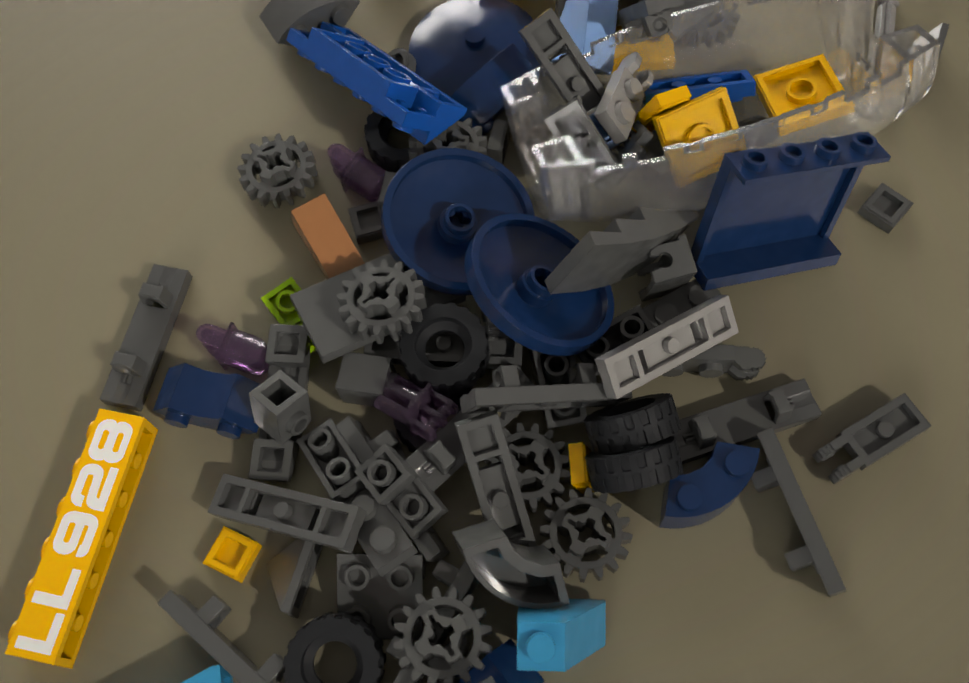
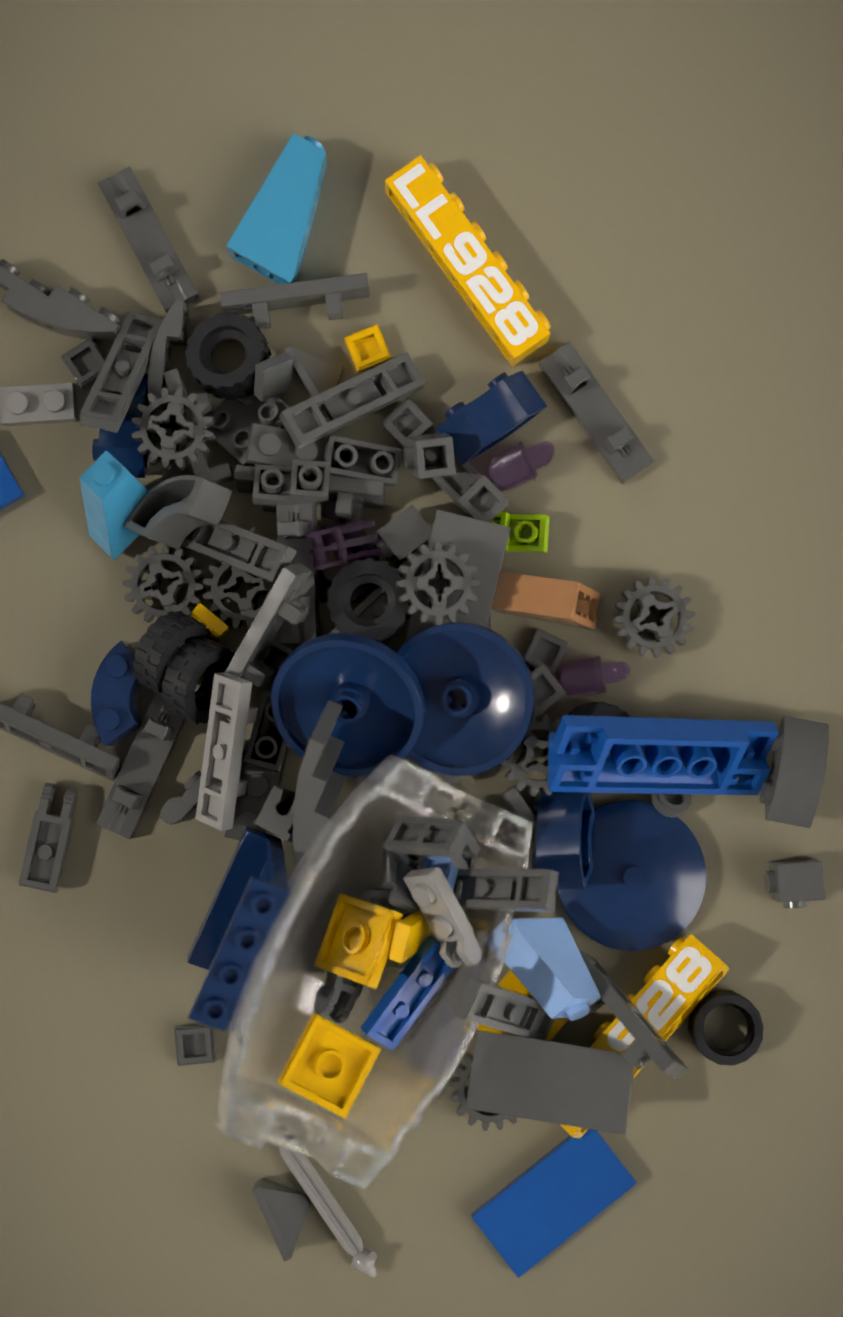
camera: 125 degrees right, 20 degrees up
(320, 601) = (273, 376): none -> dark grey tile

